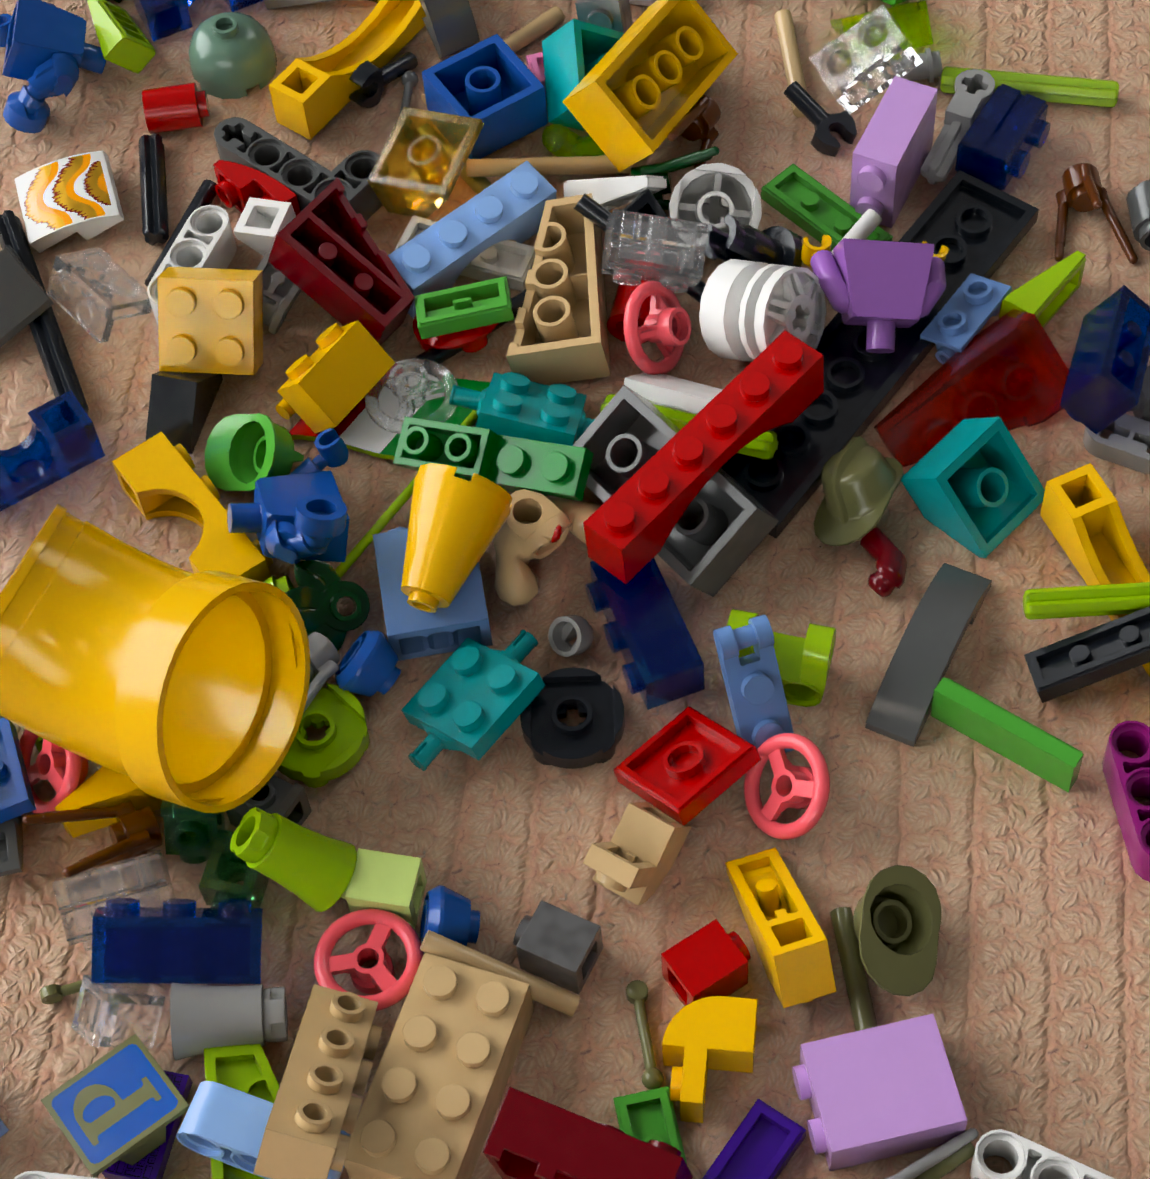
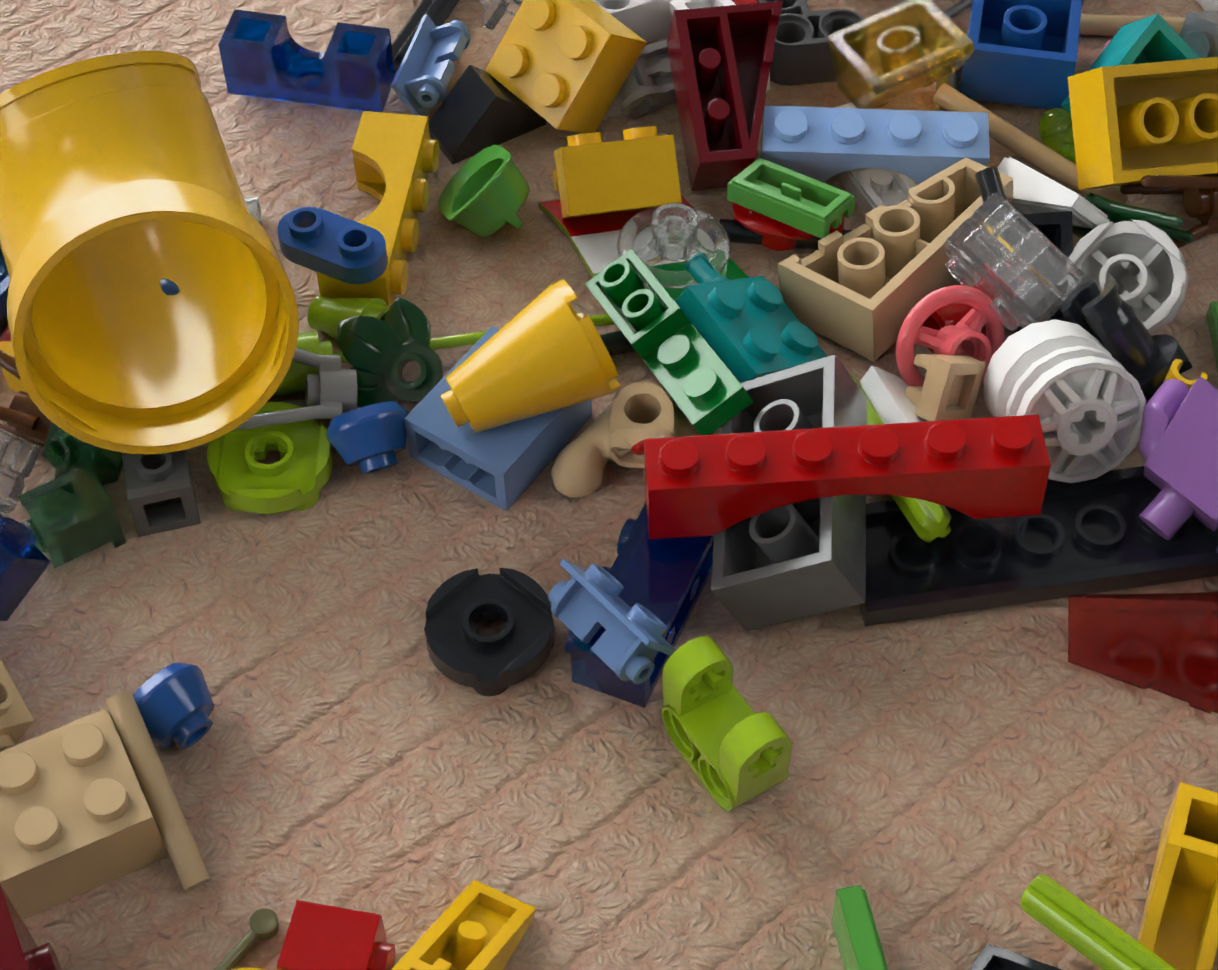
camera: 40 degrees right, 5 degrees down
(117, 409) = (429, 64): none -> medium blue hinge
(210, 554) = (332, 245): none -> blue plate
(295, 857) = (108, 533): lime plant -> none
(299, 512) = (453, 261): blue torso -> none
(380, 978) = (79, 684): coral piece -> none
(387, 883) = (163, 628): yellowish green brick -> none
(473, 699) = (422, 536): teal plate -> none
(558, 946) = (237, 816): flat silver brick -> none
(566, 629) = (574, 547): light grey hinge -> none
(637, 650) = (630, 634): none -> medium blue hinge
(638, 852) = (394, 799): tan brick -> none
(687, 765) = (533, 756): red tile -> none
(690, 355) = (948, 387): none -> tan tile
(753, 681) = (657, 735): medium blue plate -> none
(791, 786) = (607, 861): coral piece -> none
(856, 492) = (986, 638): olive piece -> none
(889, 563) = (946, 740): dark red arm -> none
(926, 653) = (892, 849): dark grey slope -> none
(975, 484) = (1118, 735): teal slope -> none

